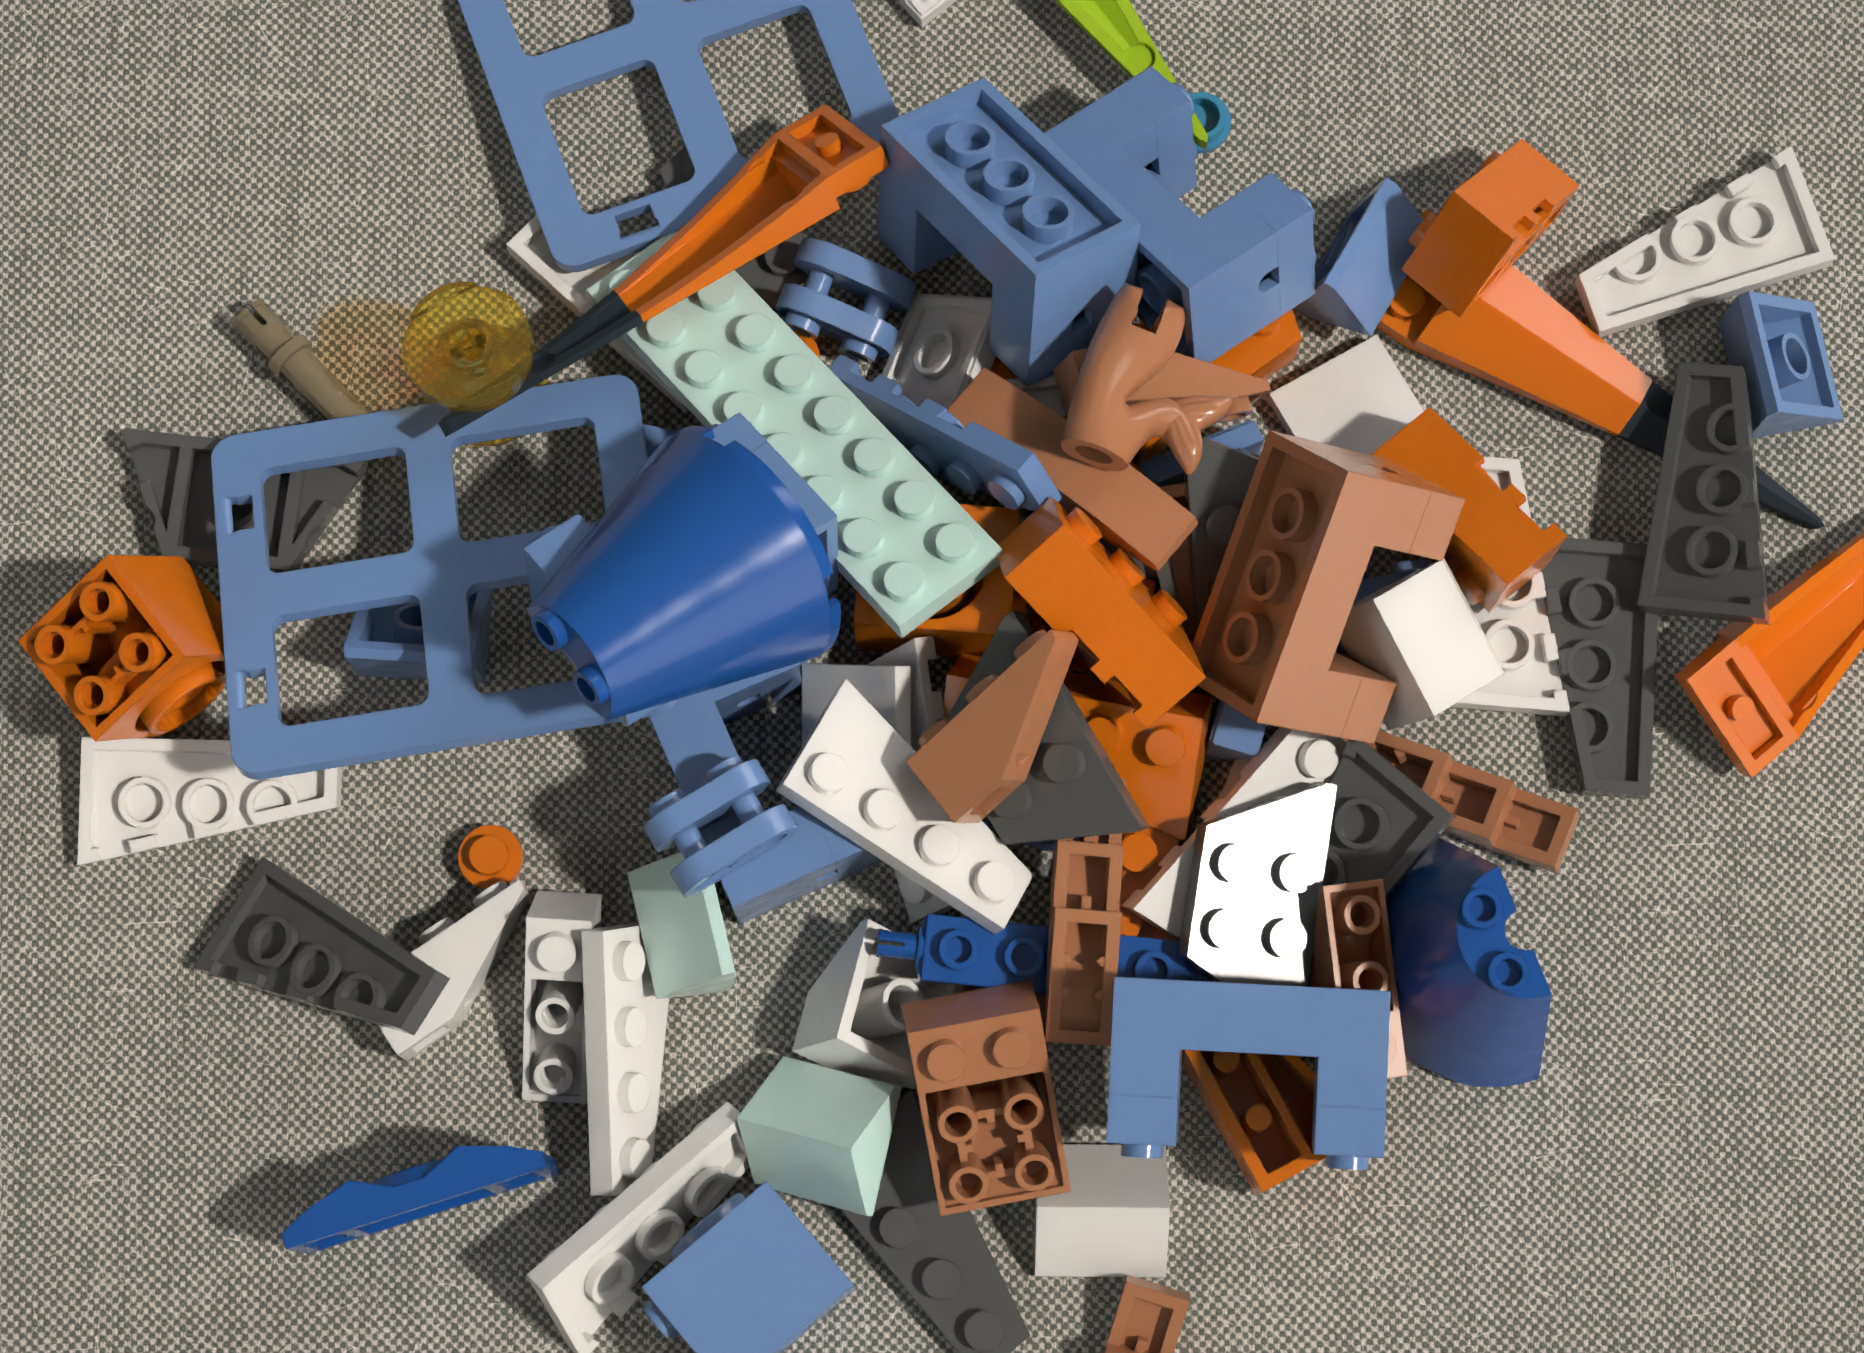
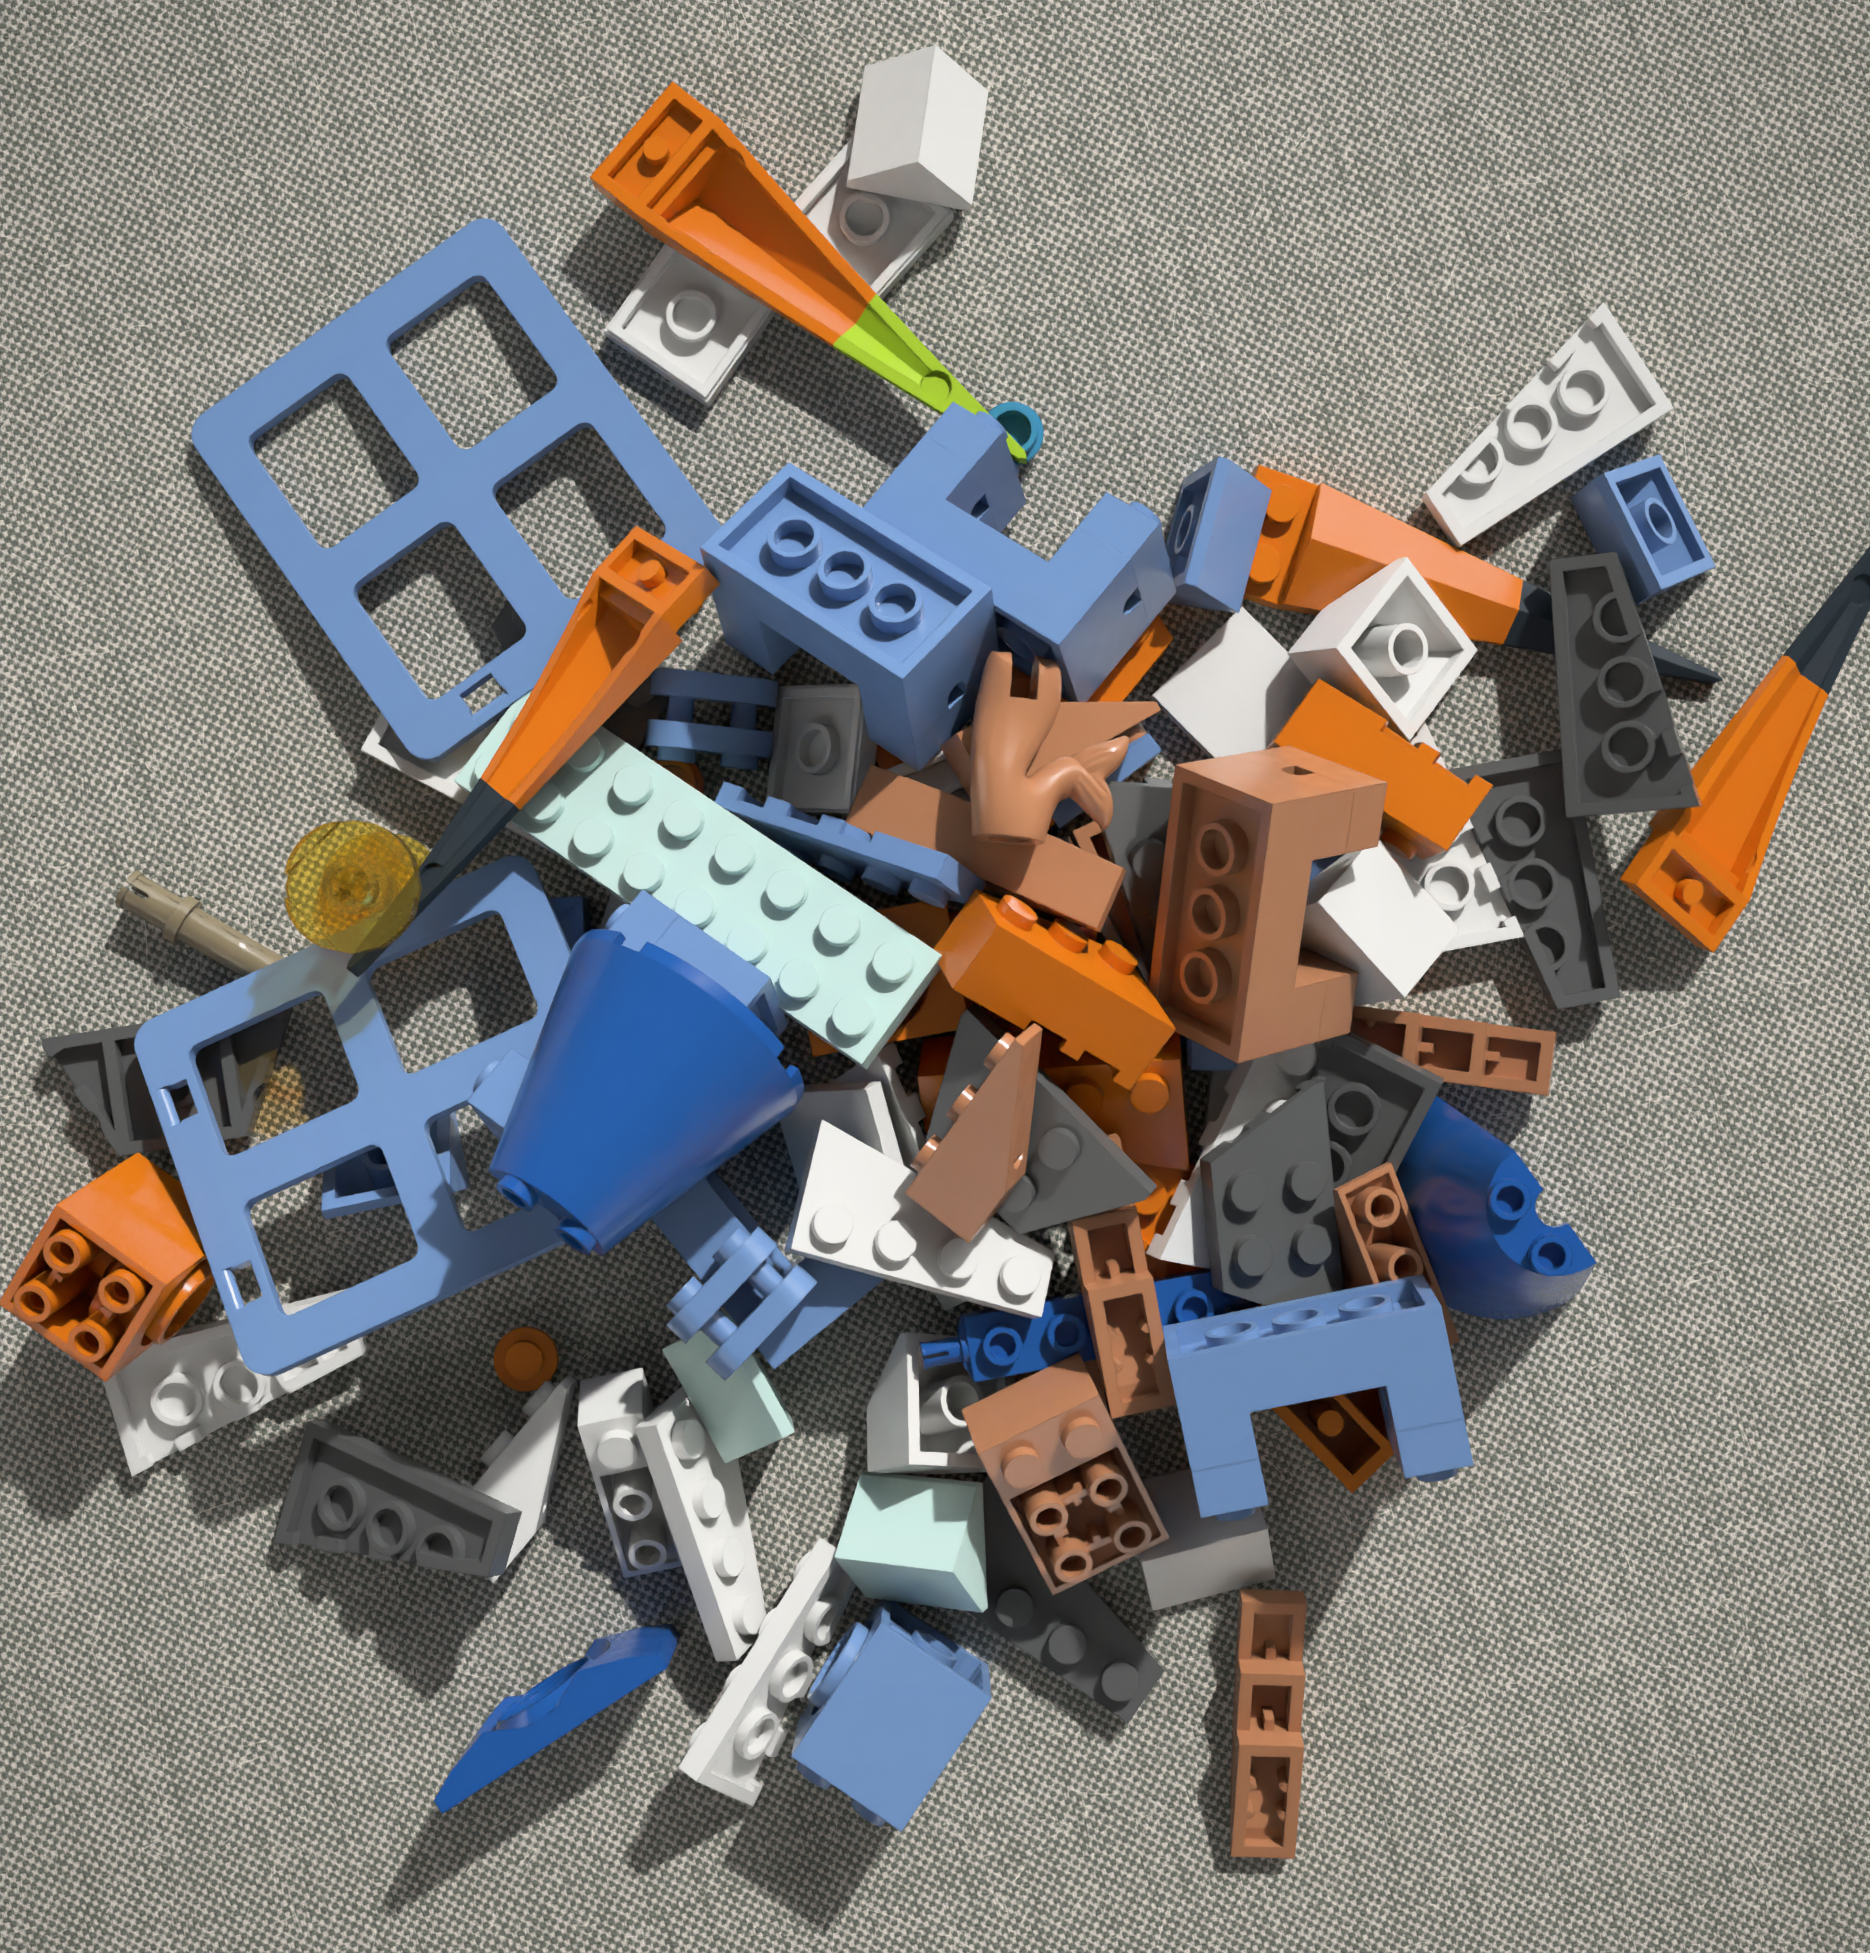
camera: 15 degrees left, 10 degrees up
(1487, 225) = (1328, 471): orange wedge -> none
(1507, 402) = (1387, 647): none -> white slope

